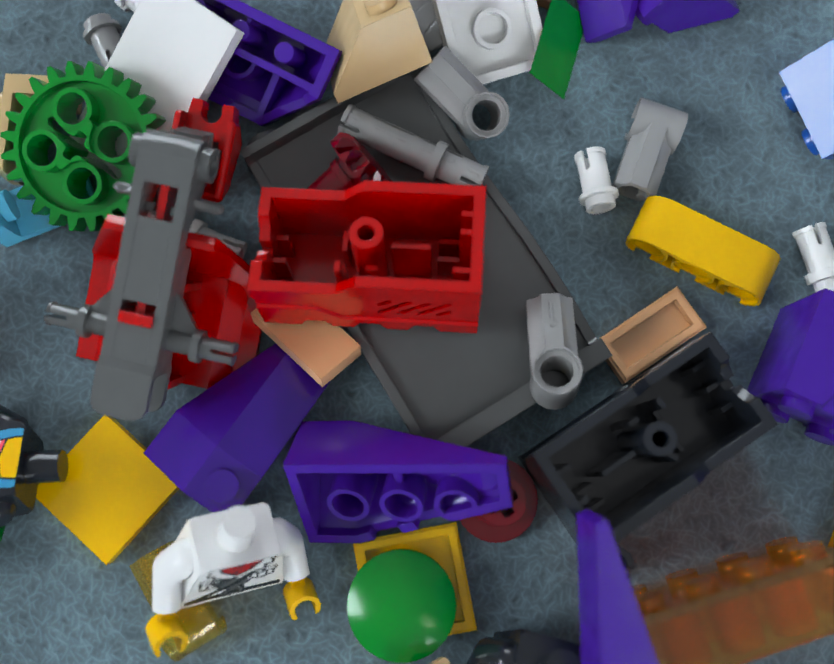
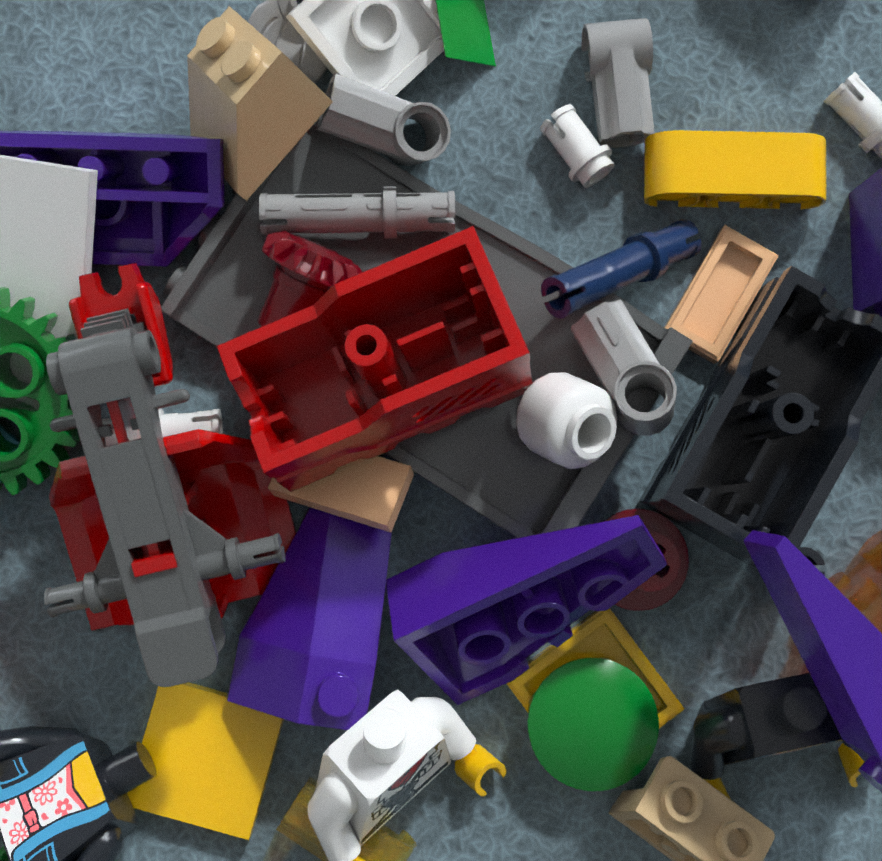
camera: 25 degrees left, 5 degrees up
(489, 365) = (566, 420): none -> white head
(602, 279) = (640, 259): none -> dark blue pin

